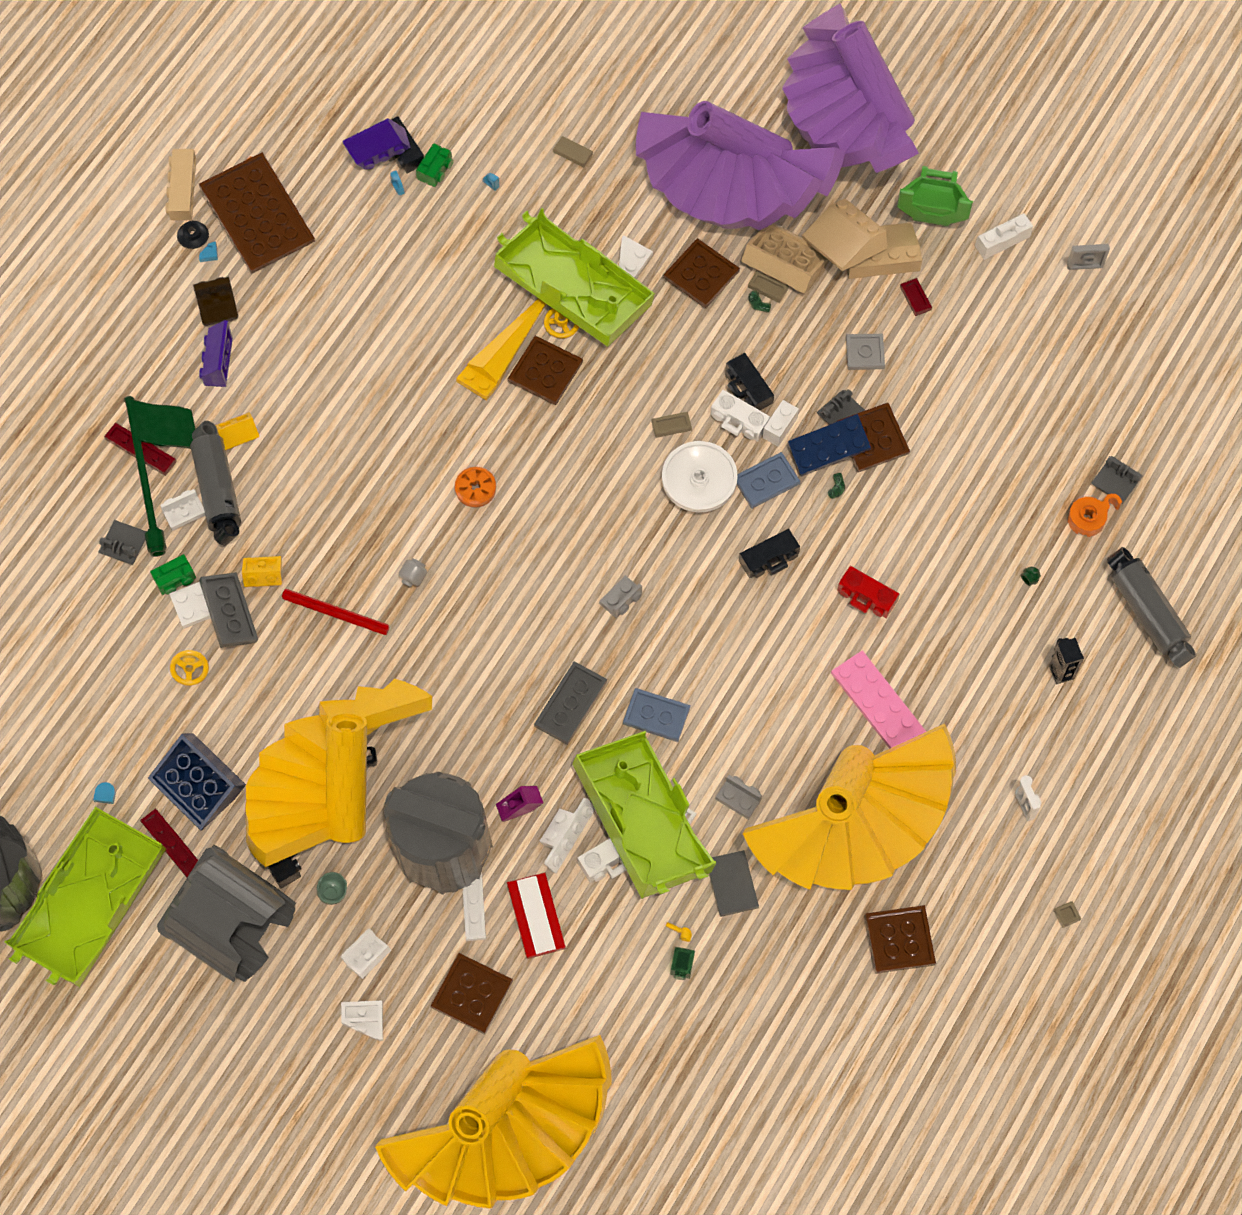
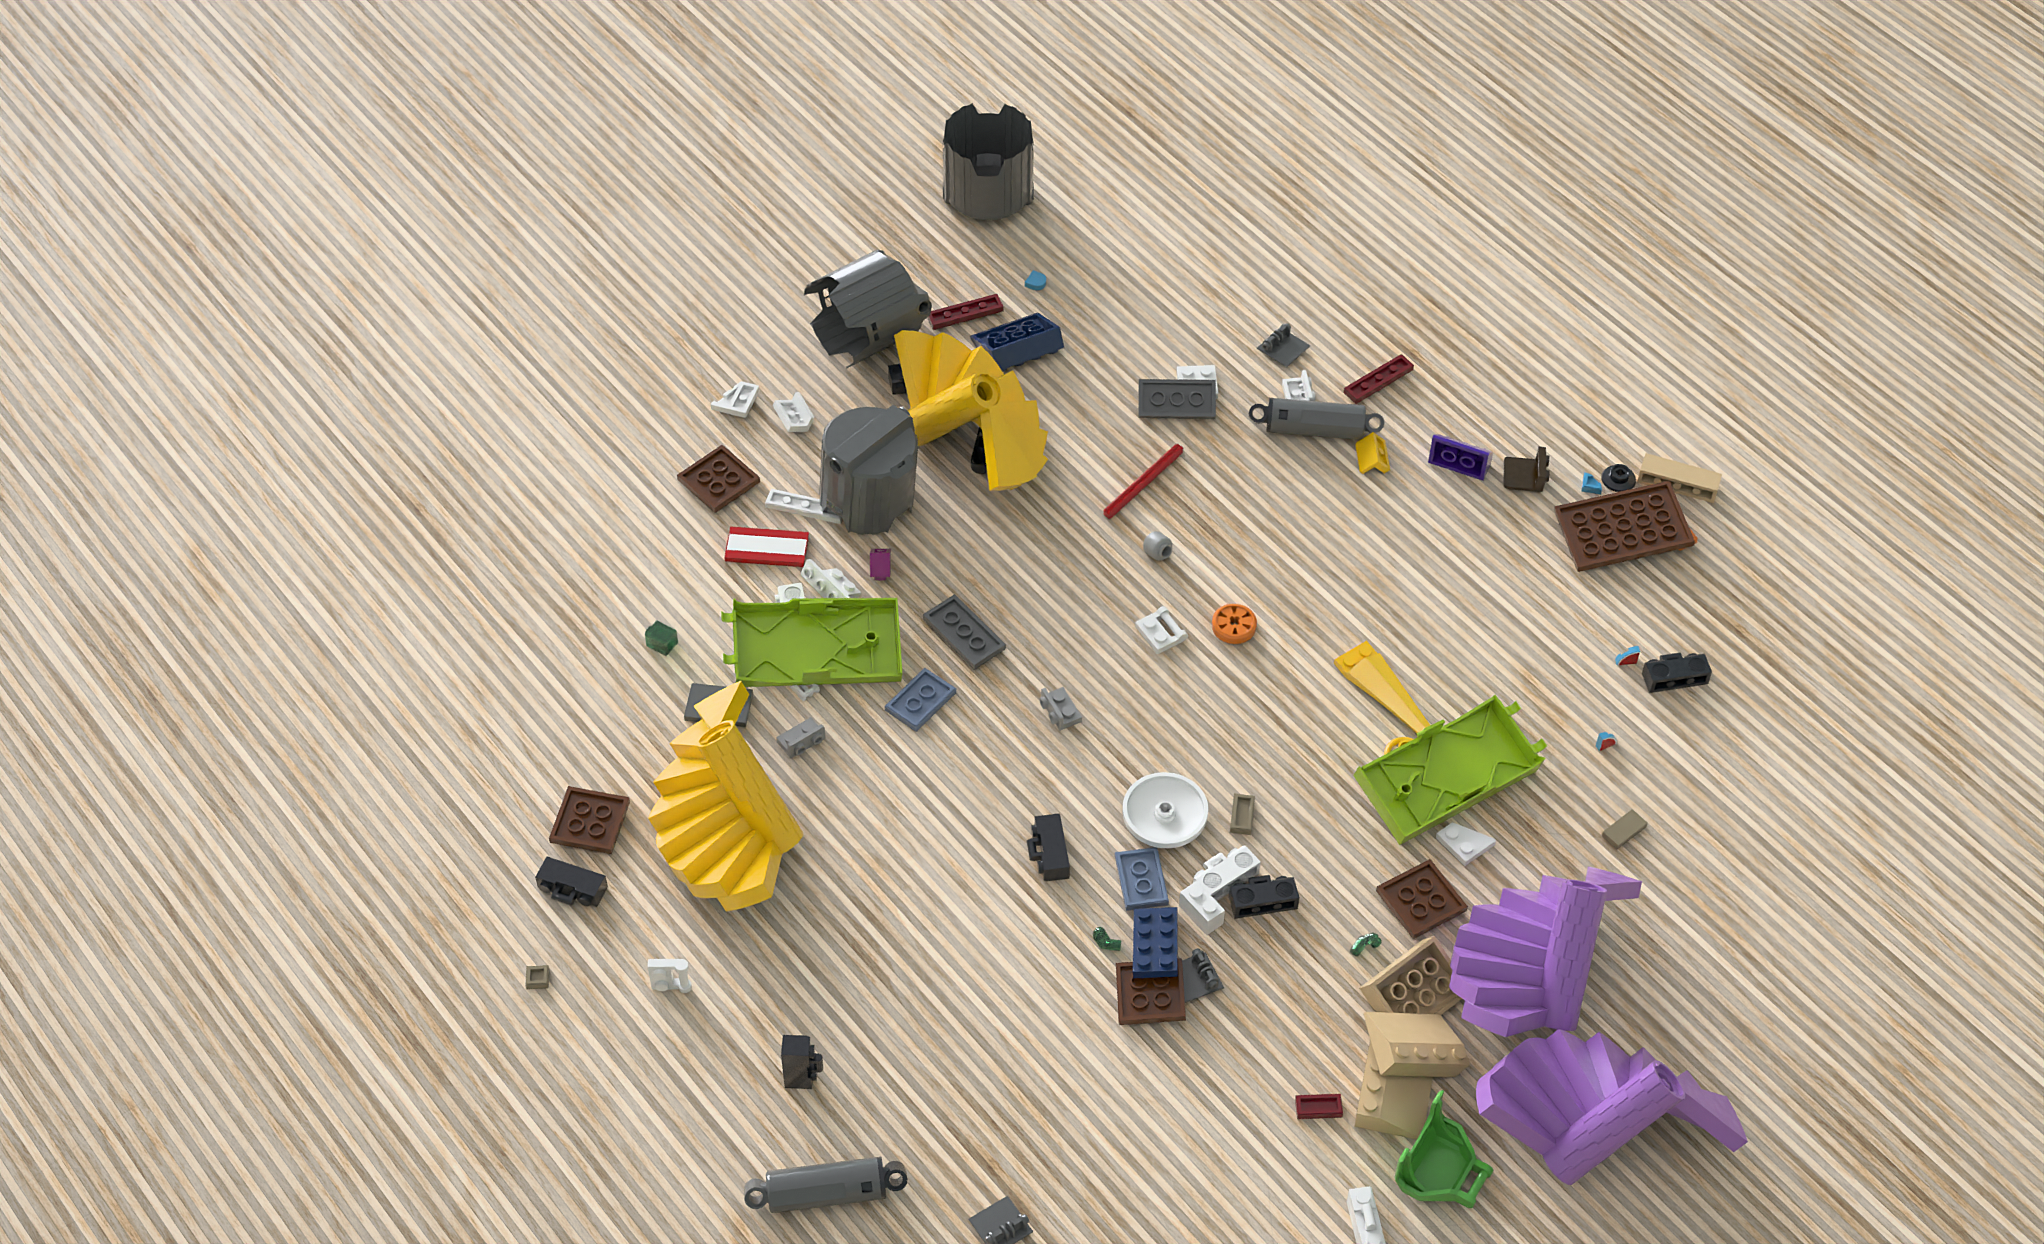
camera: 110 degrees right, 15 degrees down
(85, 897) = (942, 241): lime piece -> none
(162, 427) = (1395, 398): dark green flag -> none
(173, 575) = (1232, 371): green brick -> none
(189, 660) = (1133, 359): yellow piece -> none
(262, 571) = (1209, 435): yellow bracket -> none
(331, 888) = (866, 399): sand green hair -> none
(377, 143) = (1673, 638): dark purple slope -> none
(434, 165) = (1641, 693): green brick -> none
(508, 548) = (1156, 634): none -> white plate
(510, 1130) = (576, 451): yellow piece -> none
(545, 370) = (1348, 719): reddish brown plate -> none
(685, 932) = (689, 652): yellow hand -> none
(768, 286) = (1382, 959): dark tan tile -> none
(865, 351) = (1265, 1028): light grey tile -> none
(869, 591) = (967, 921): red piece -> none
(877, 700) = (823, 897): bright pink plate -> none
(968, 930) = (570, 883): none -> black piece
(1031, 575) = (919, 1085): dark green plate -> none
(1095, 509) = (966, 1185): orange piece -> none

